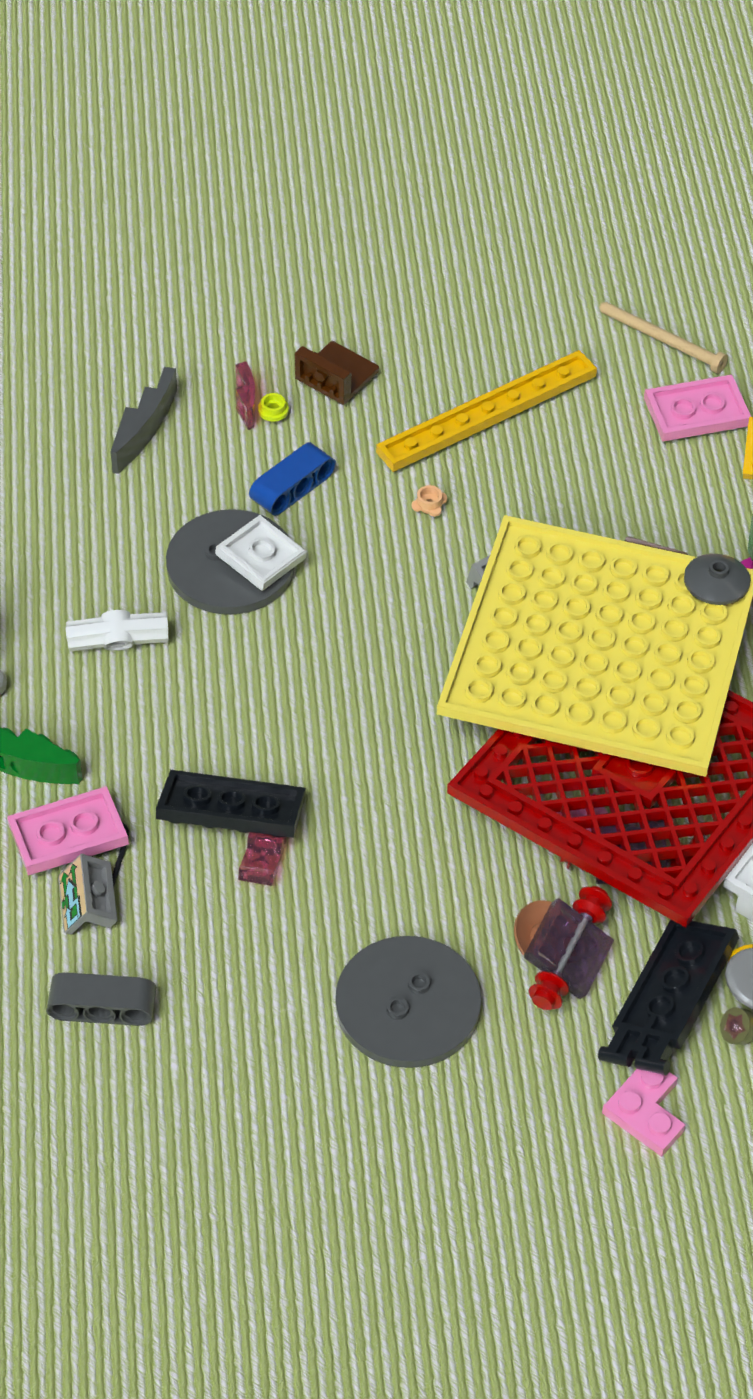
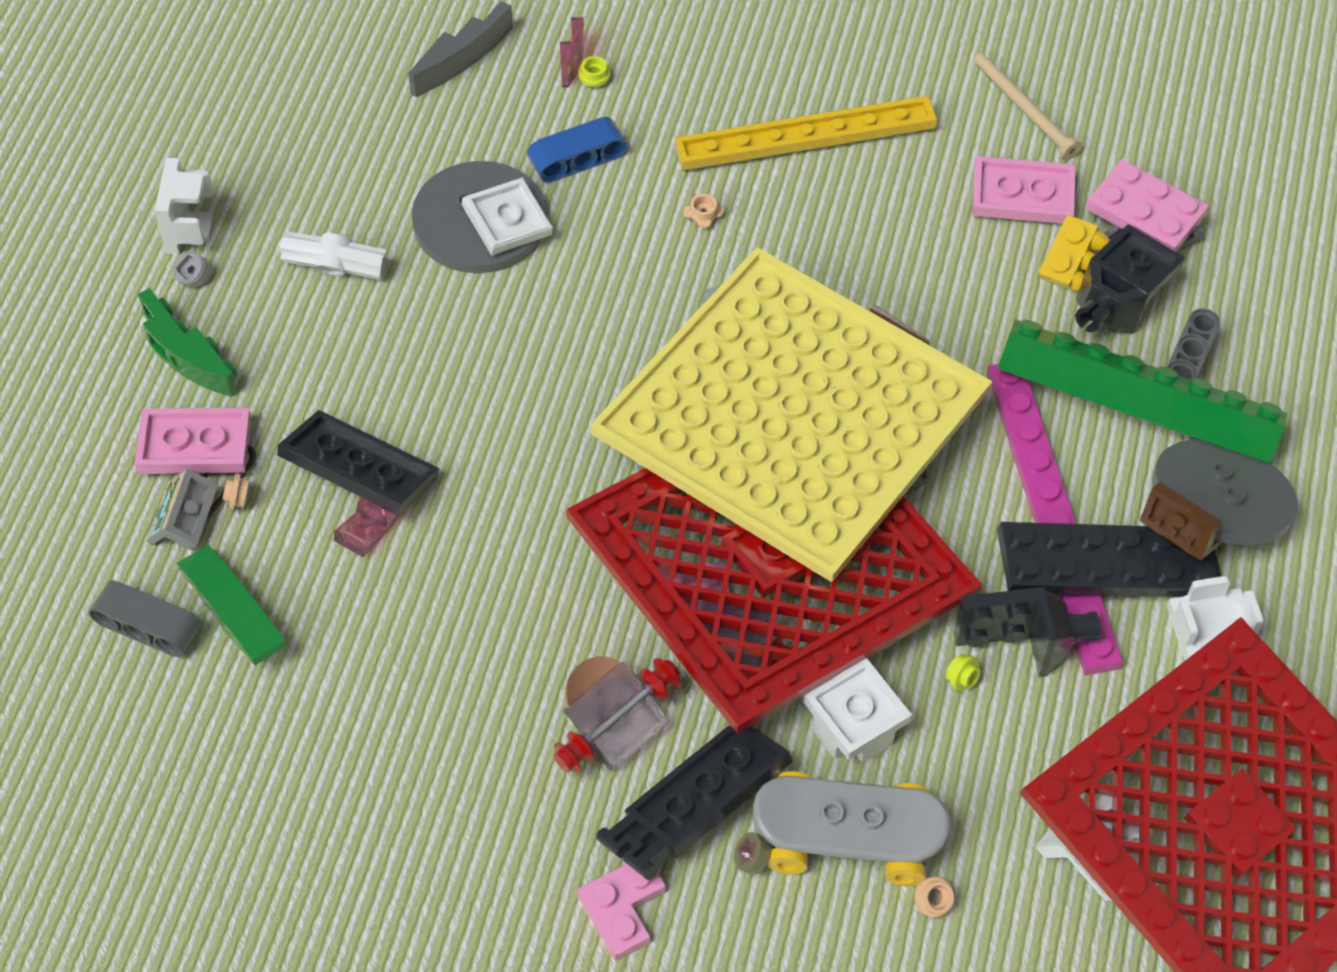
camera: 20 degrees right, 5 degrees up
(130, 863) = (235, 491): none -> light nougat plate
(176, 960) = (232, 605): none -> green slope
(334, 371) = (672, 51): reddish brown bracket -> none
(408, 1001) = (438, 717): dark grey plate -> none
(717, 579) = (940, 387): dark grey dish -> none

